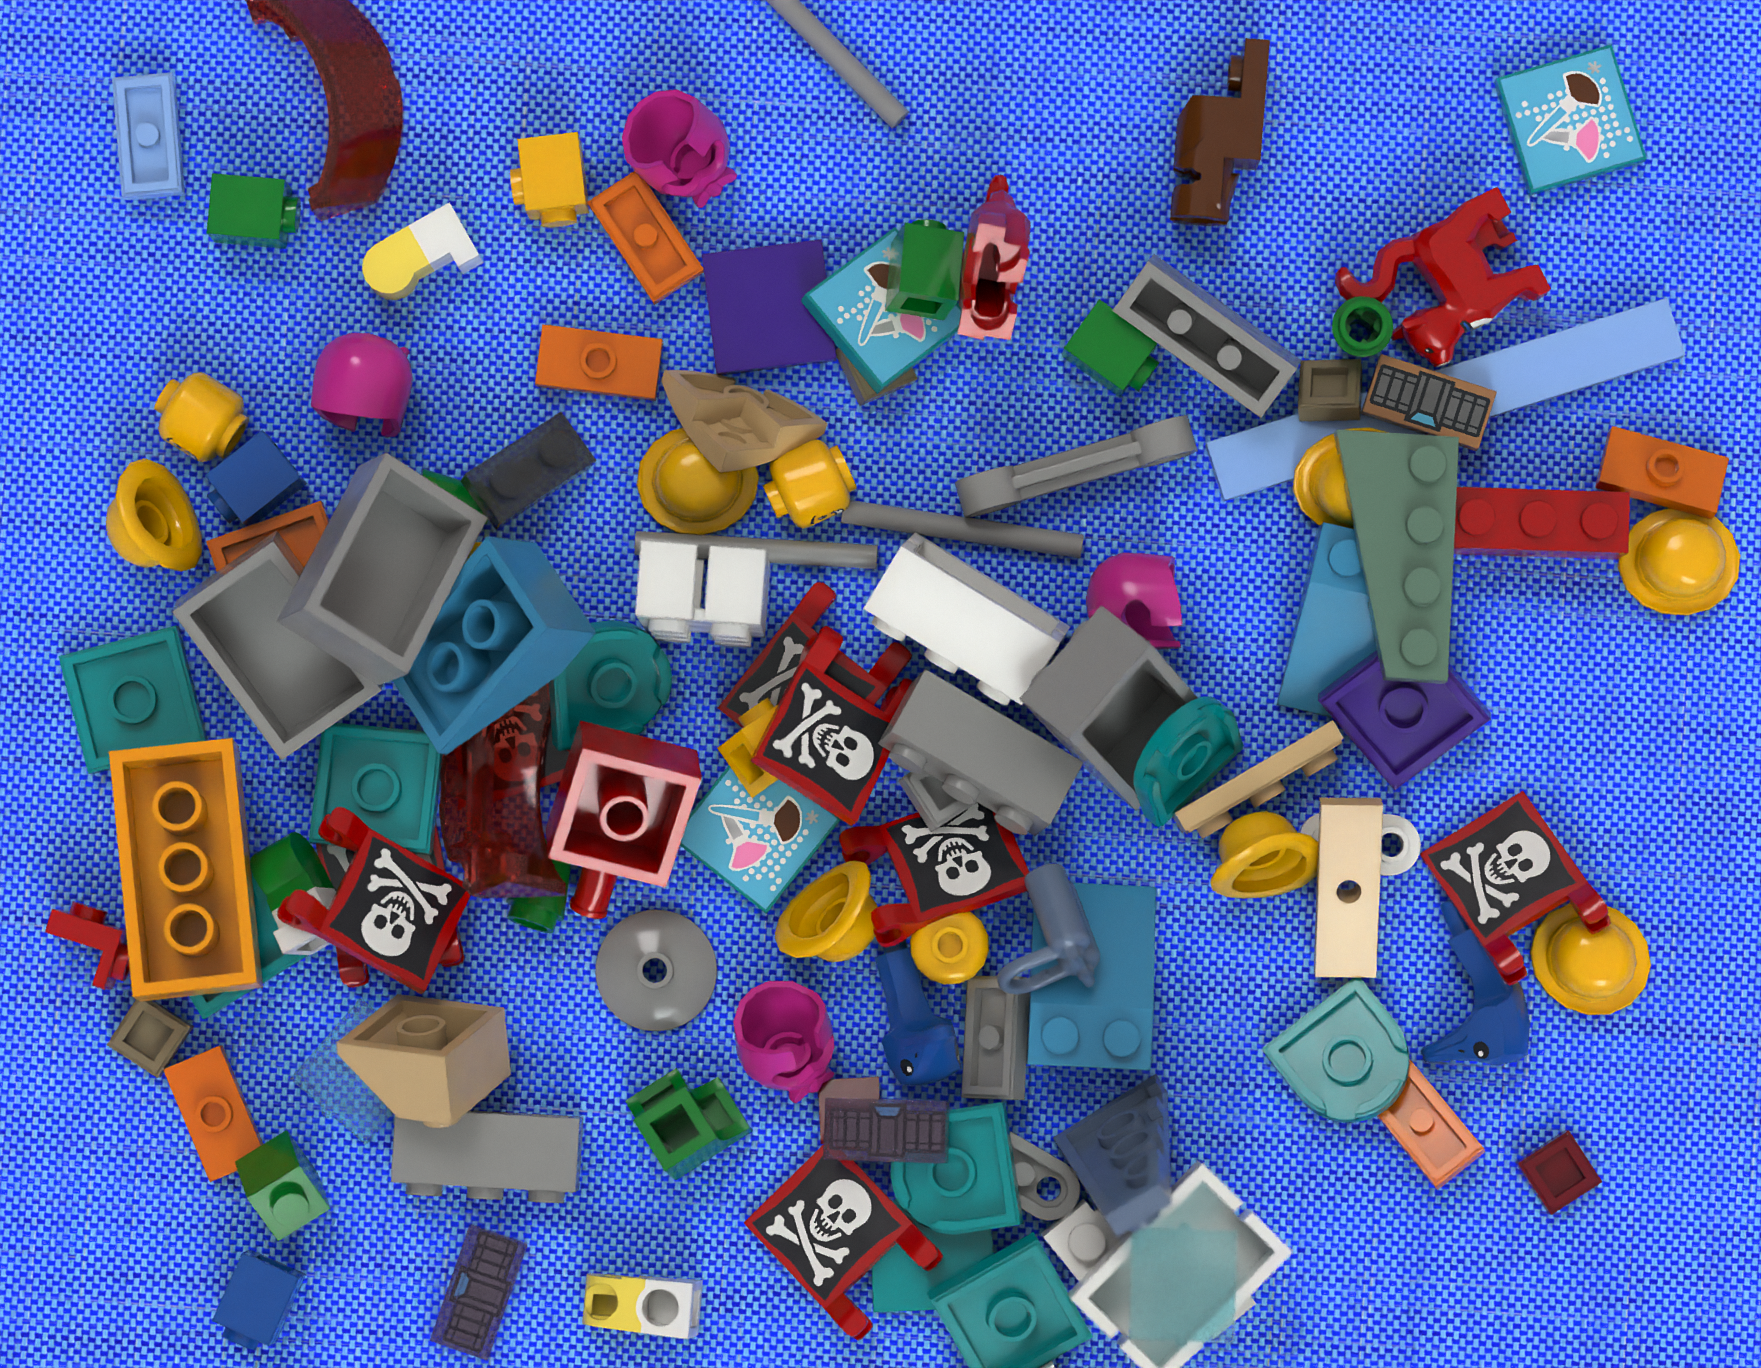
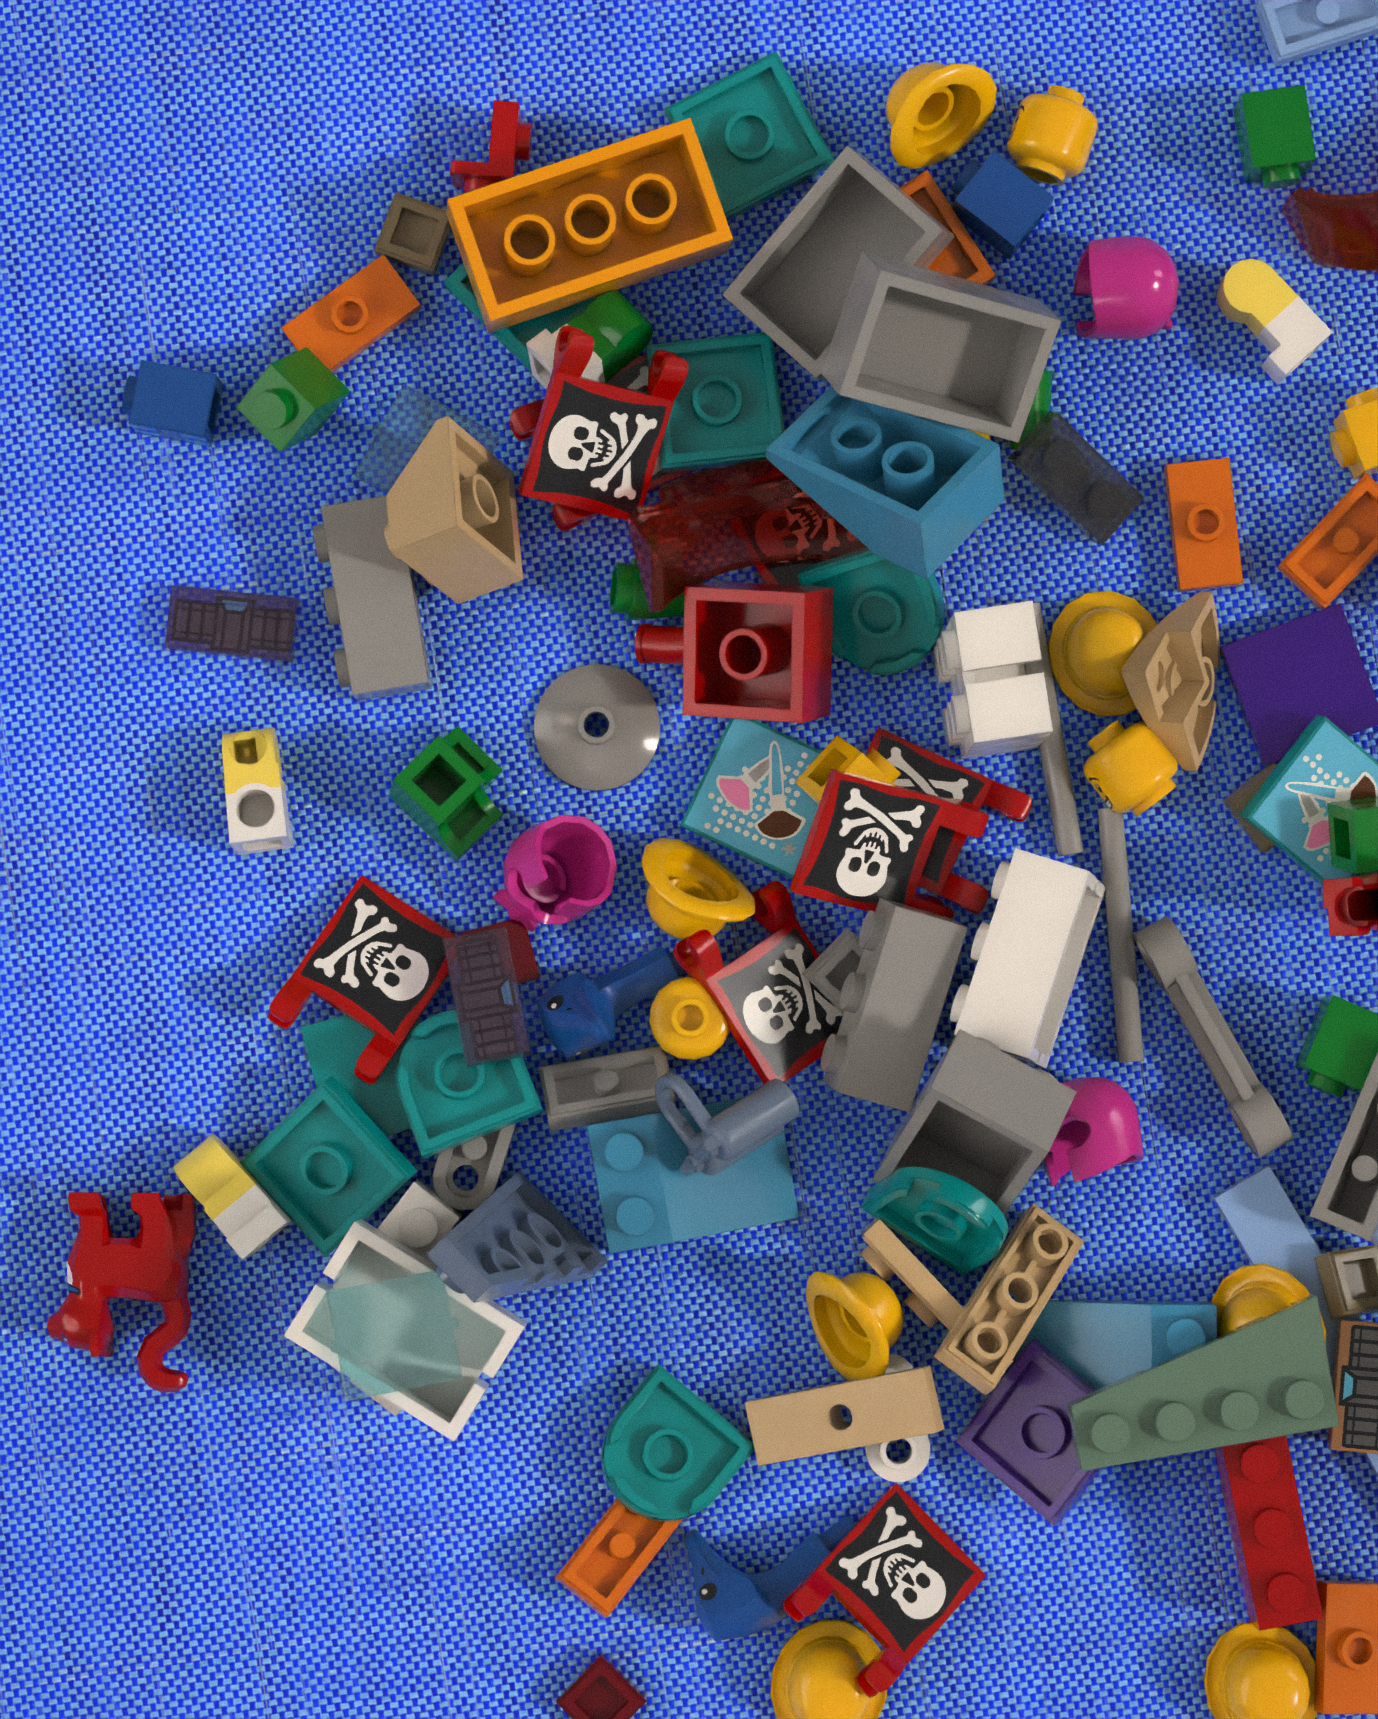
camera: 80 degrees right, 0 degrees up
(1294, 730) = (992, 1322): none -> tan tile

